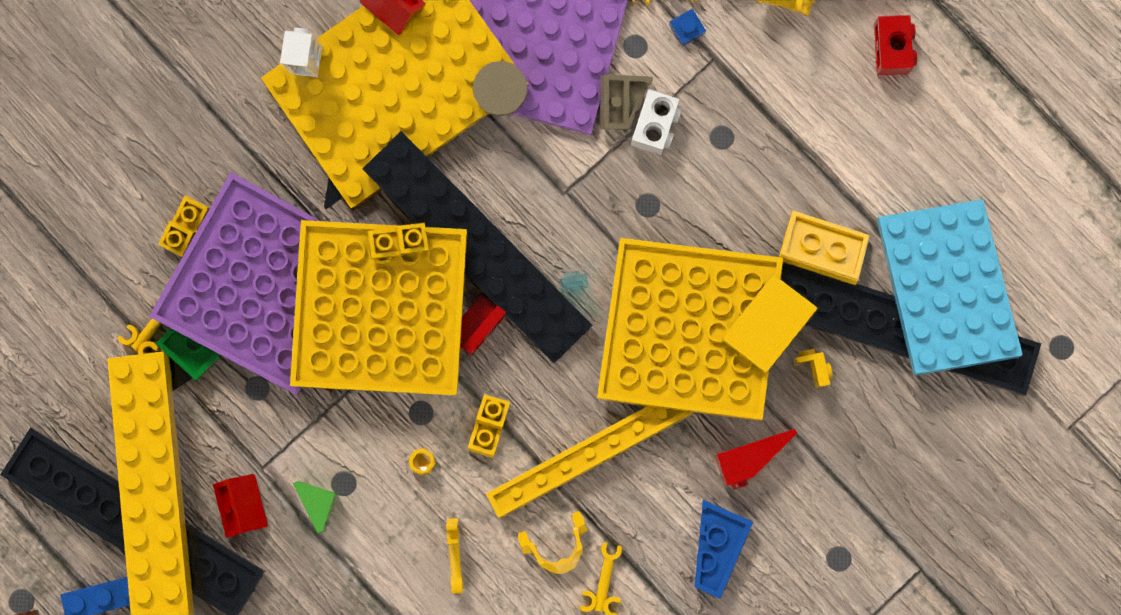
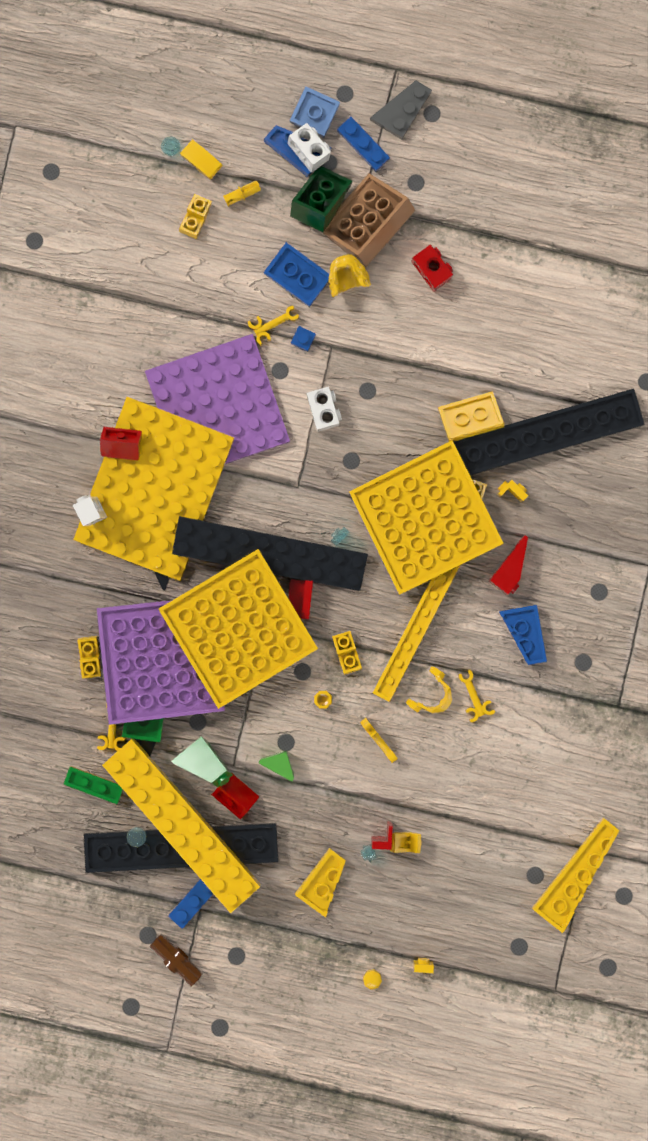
camera: 30 degrees left, 5 degrees up
(82, 377) = (93, 785): none -> green plate
(88, 472) = (136, 837): none -> clear light blue plate
(229, 439) = (203, 762): none -> slope
(397, 241) = (223, 583): yellow slope -> none
(500, 88) = (220, 452): dark tan tile -> none
(621, 99) = (294, 409): dark tan wing -> none
(769, 324) = (470, 484): yellow tile -> none
(948, 287) = (559, 391): medium azure plate -> none

